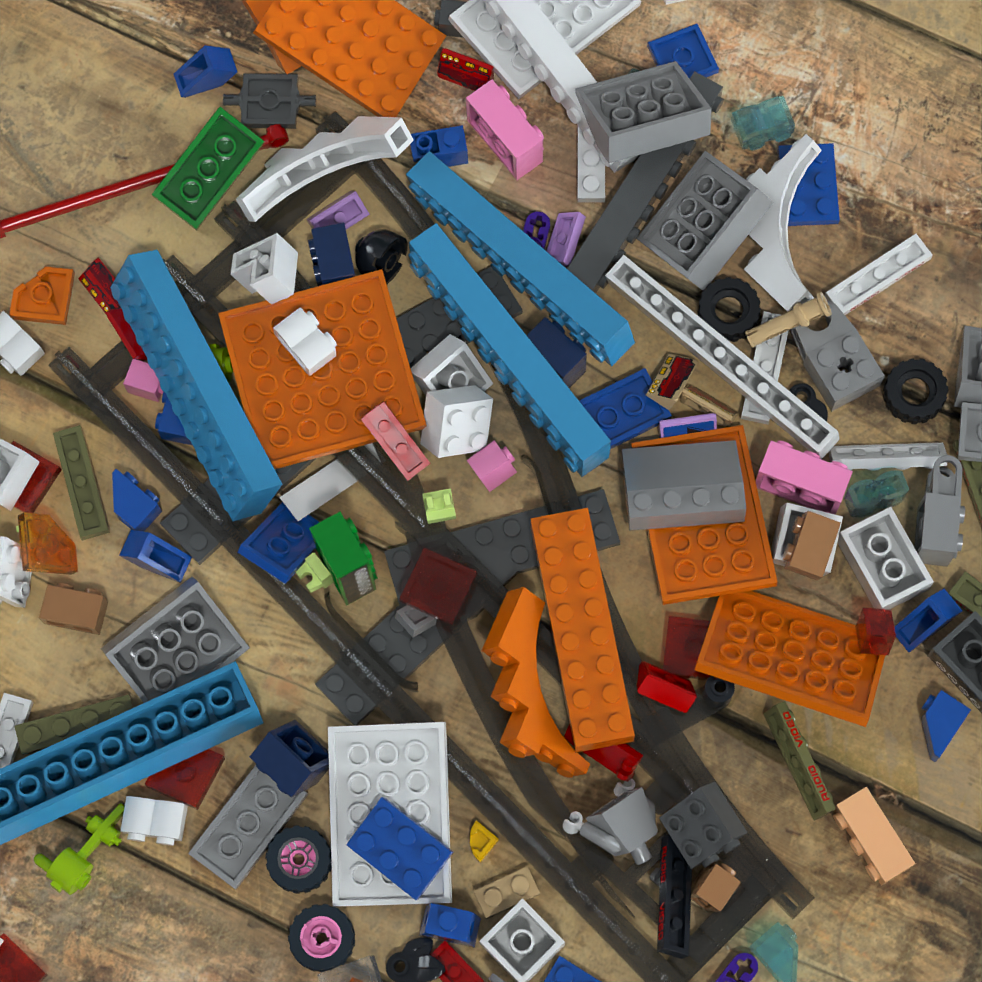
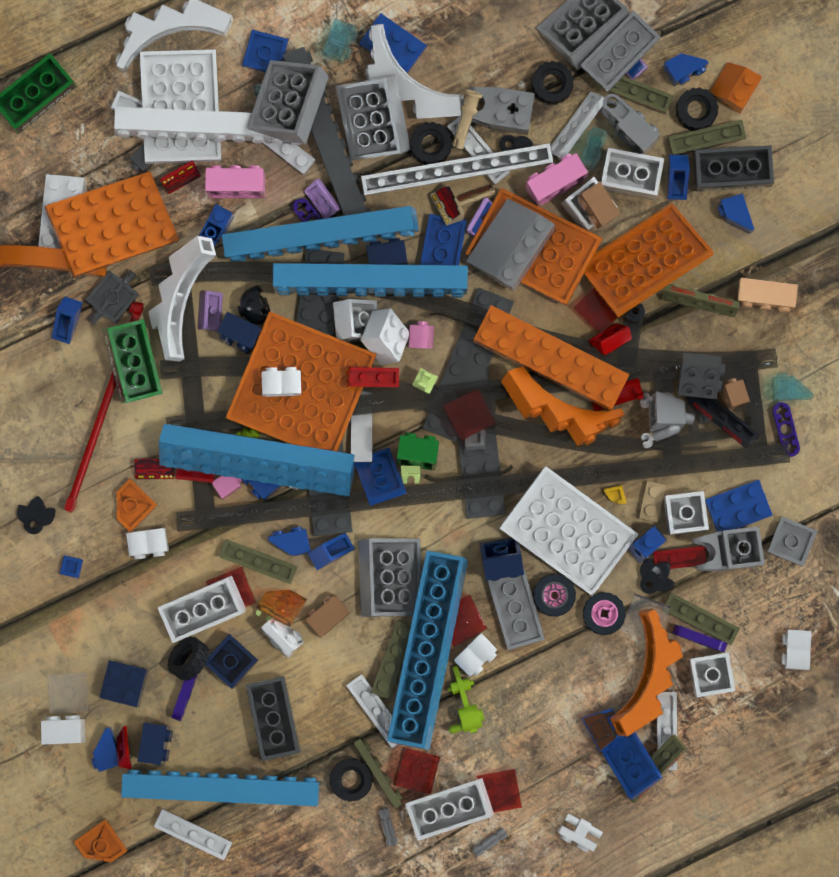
camera: 55 degrees left, 10 degrees up
(267, 268) = (222, 371): white brick -> none
(400, 848) = (591, 538): blue plate -> none
(875, 631) = (666, 208): clear red brick -> none
(879, 274) = (474, 49): white plate -> none

